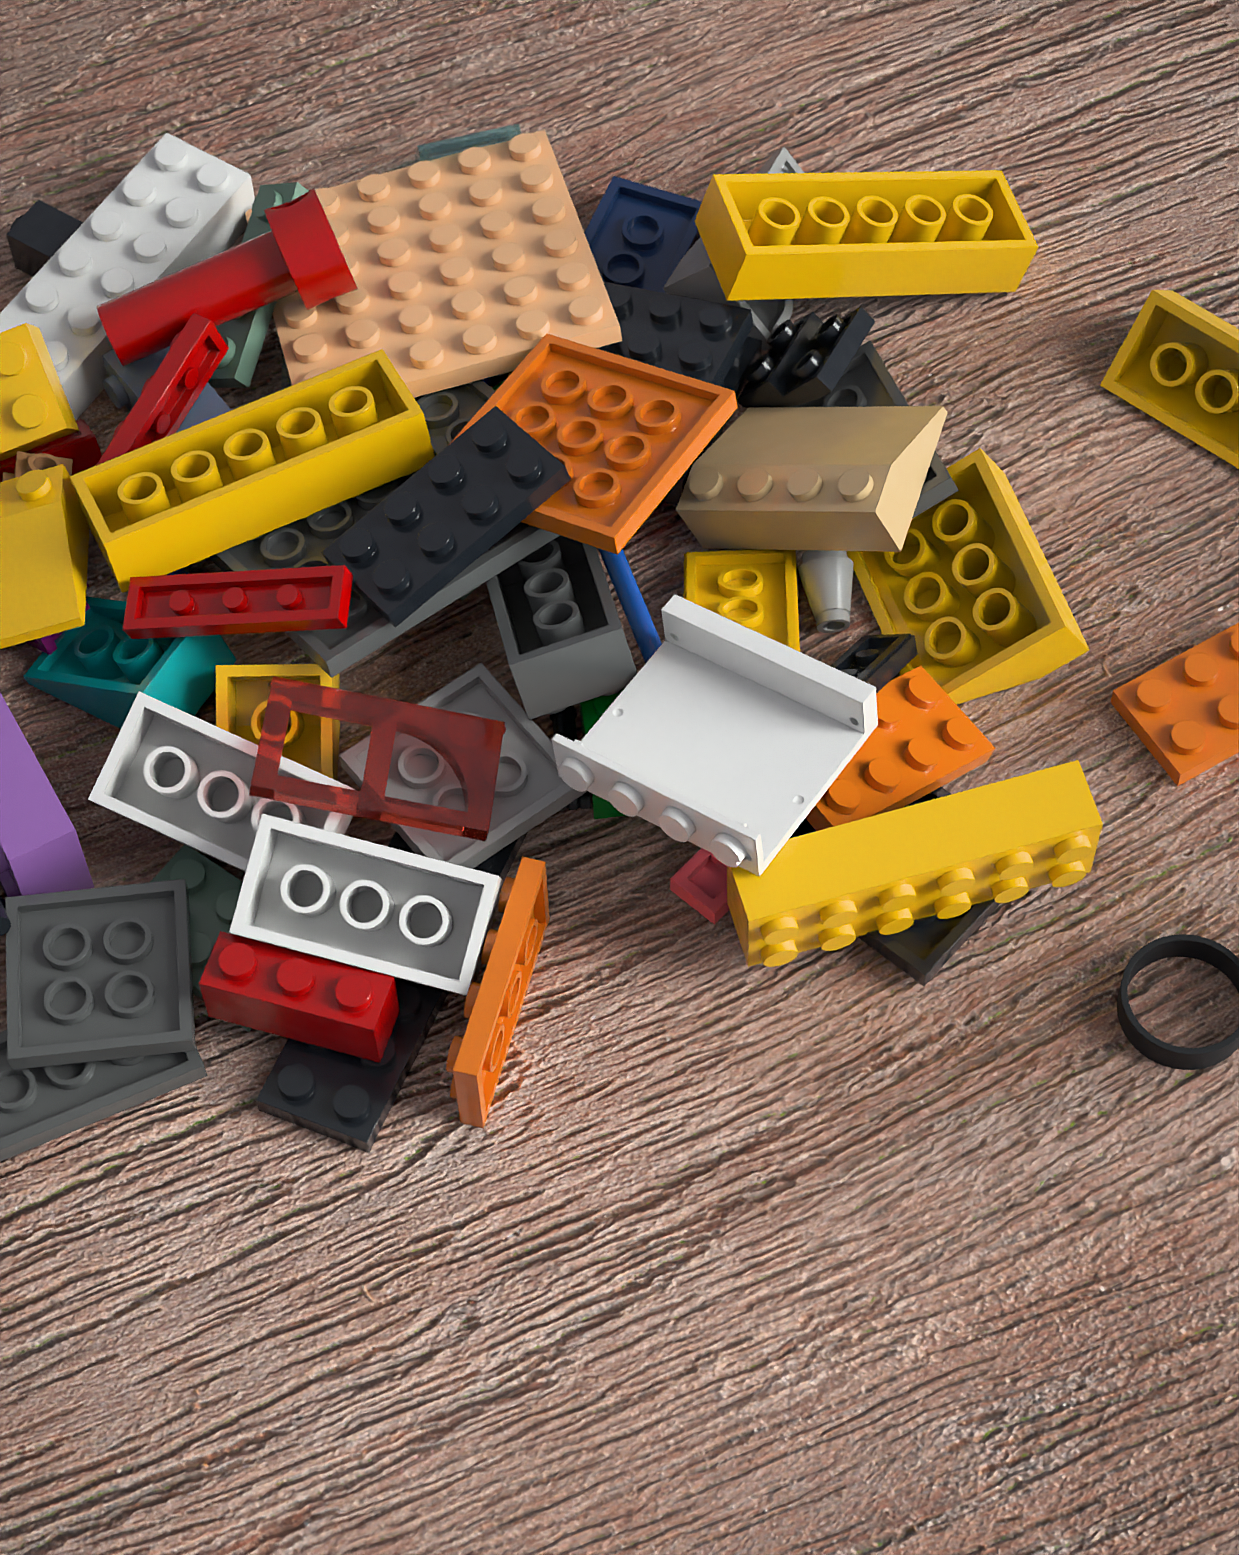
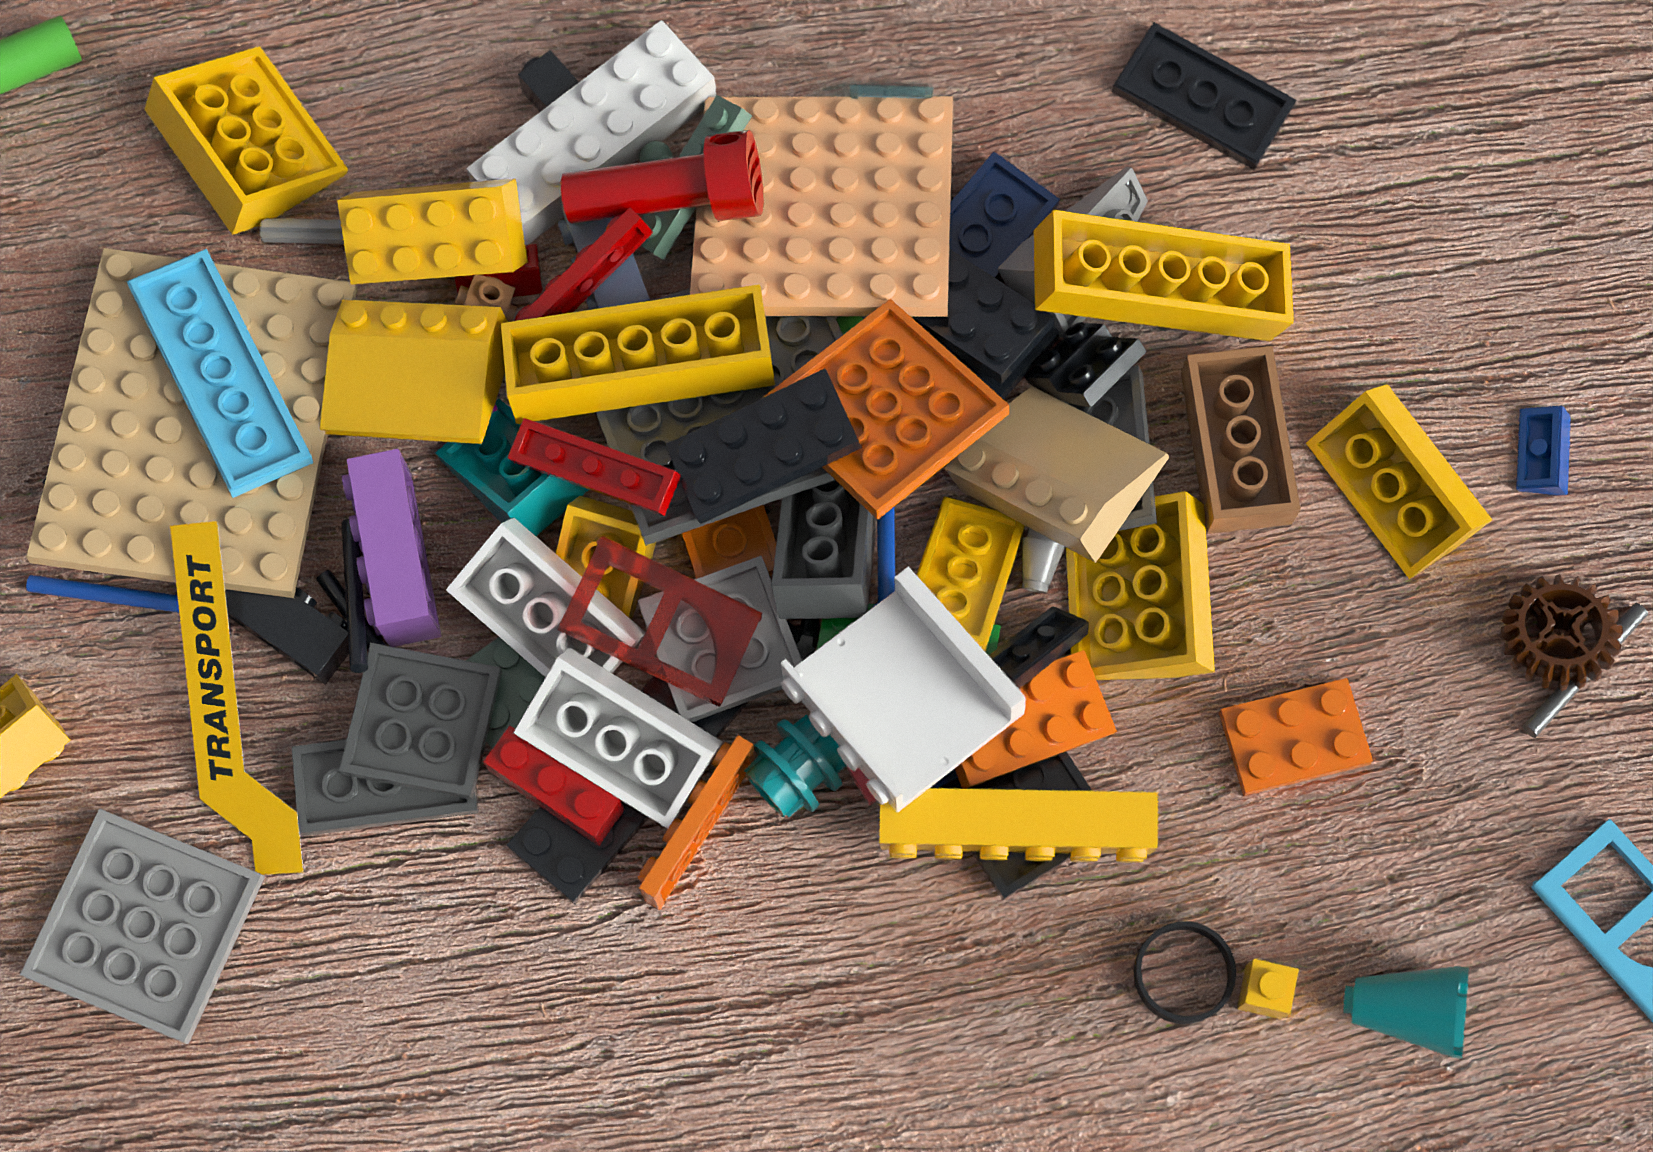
camera: 15 degrees right, 15 degrees up
(429, 659) = (731, 542): none -> orange plate
(608, 889) = (795, 767): none -> teal piece
(839, 66) = (1204, 95): none -> black tile
(1023, 391) = (1240, 440): none -> medium nougat brick

